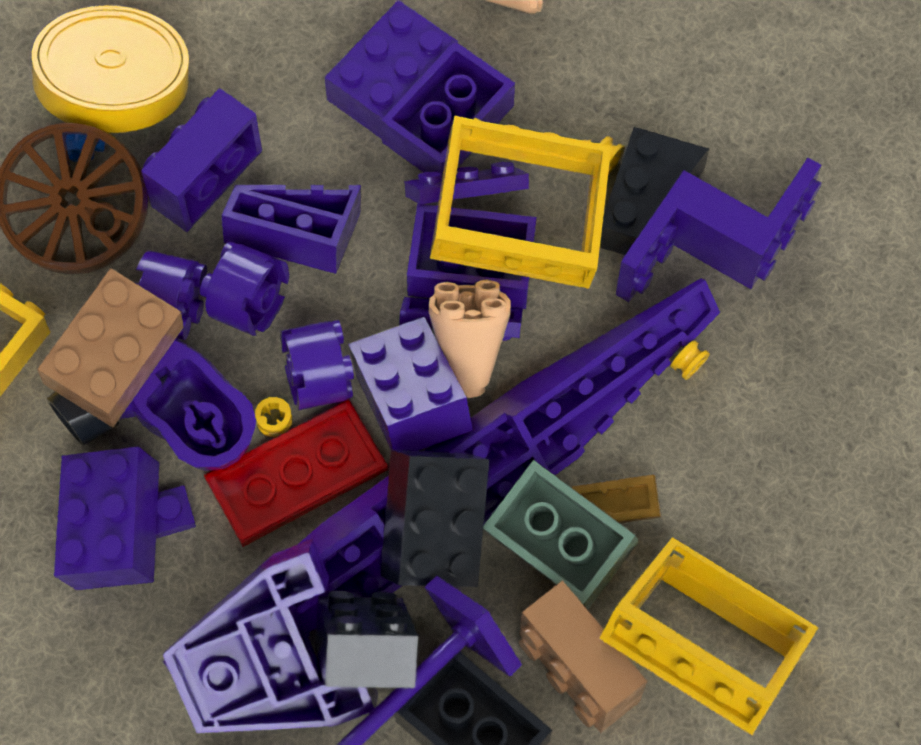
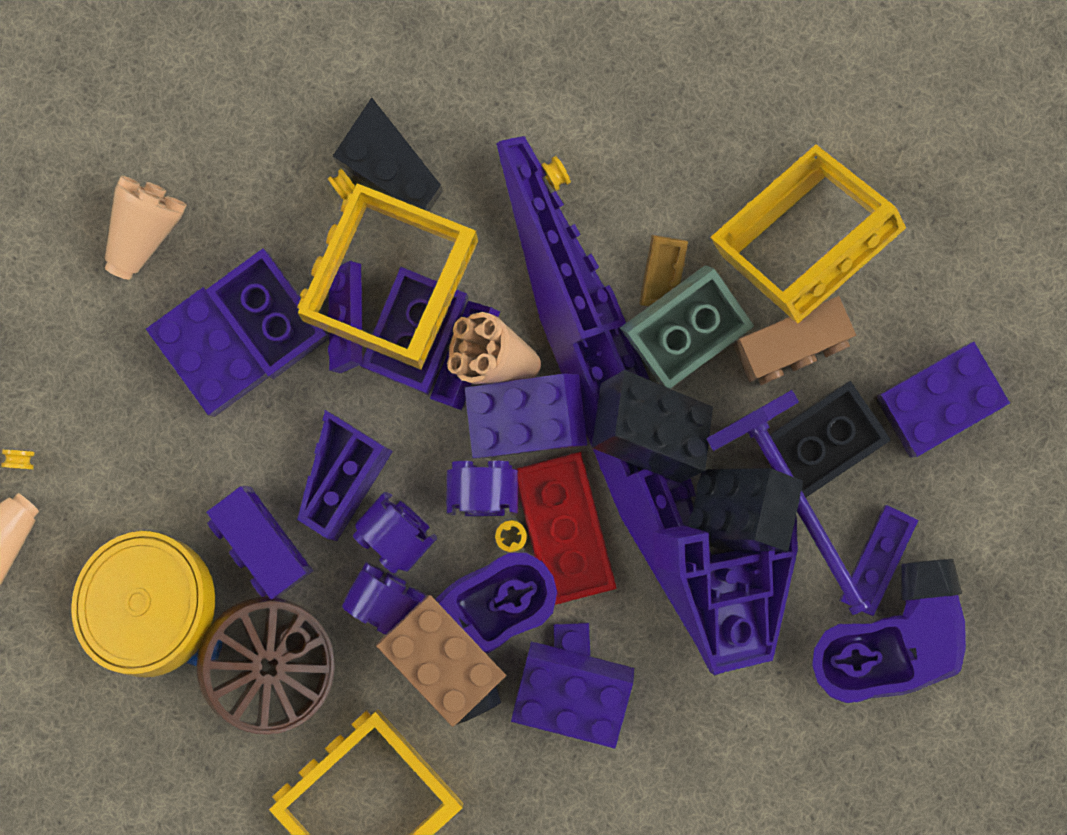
camera: 70 degrees left, 20 degrees up
(718, 231) = (451, 110): dark purple bracket -> none

